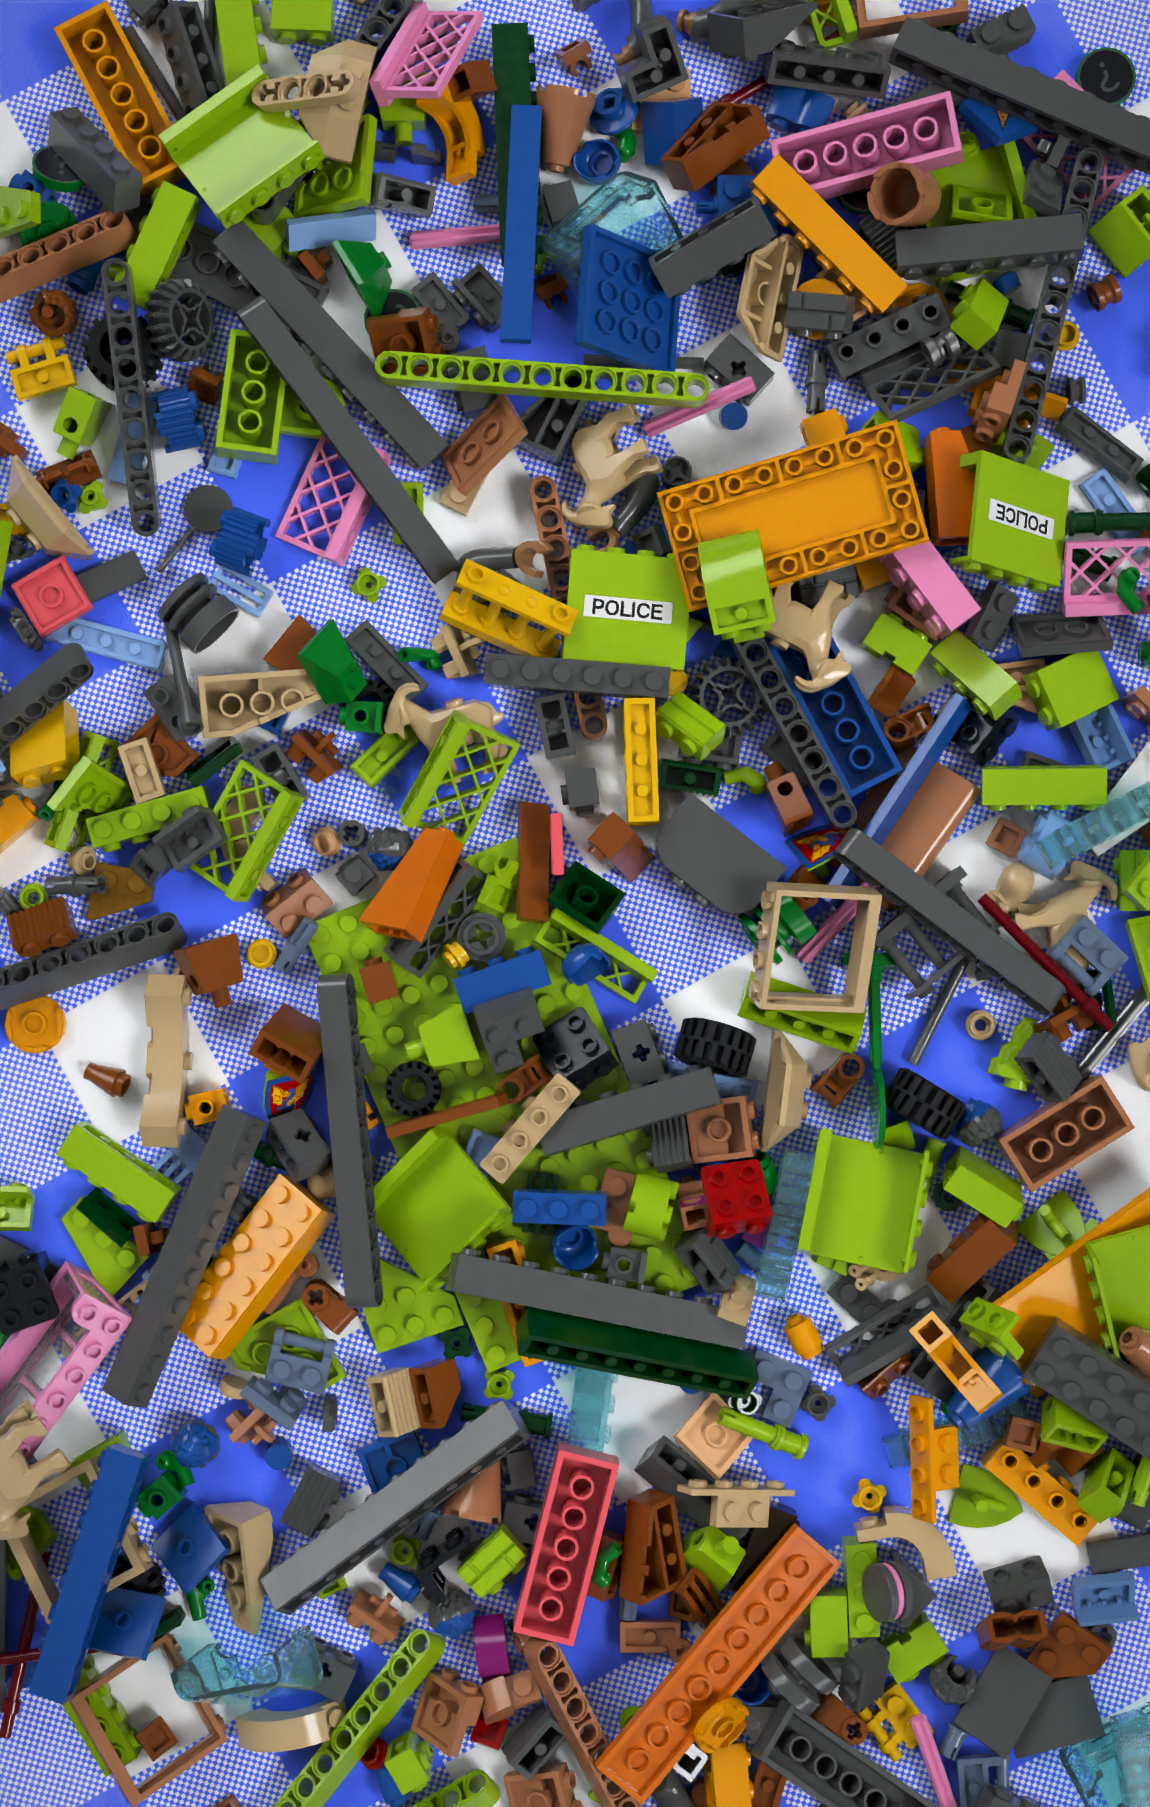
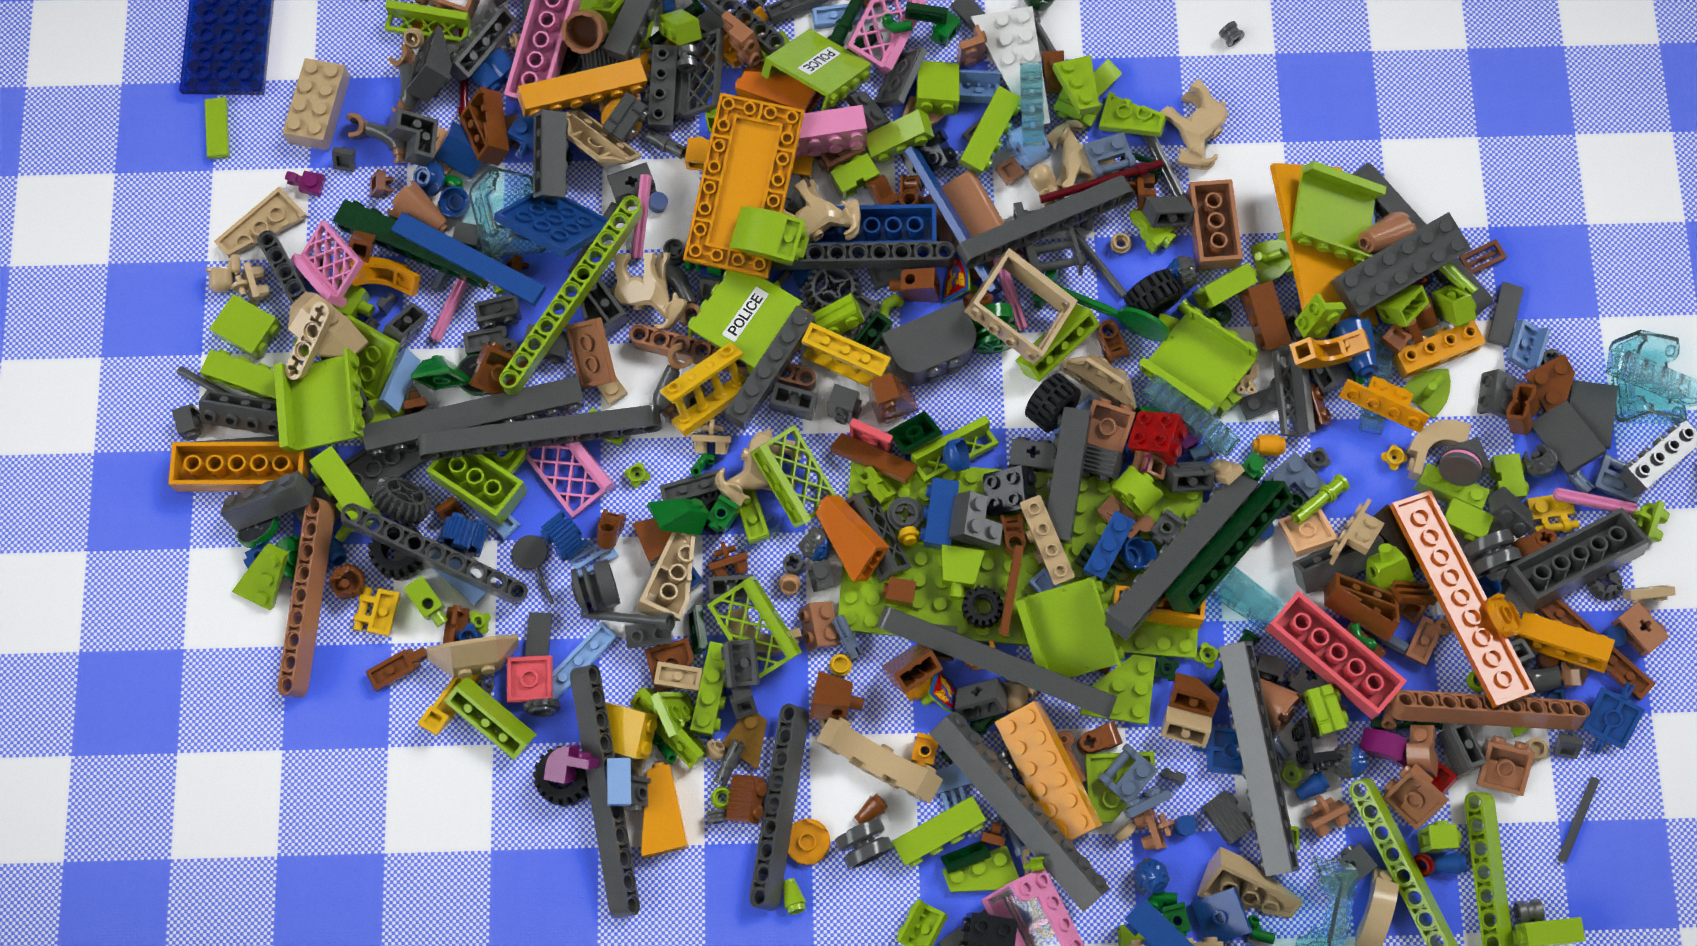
camera: 65 degrees left, 15 degrees down
(57, 1093) = (862, 841): none -> dark grey wheel
(127, 1308) = (1035, 864): none -> lime hand
(286, 589) = (609, 529): none -> dark orange piece
(762, 1331) = (1254, 466): none -> green brick

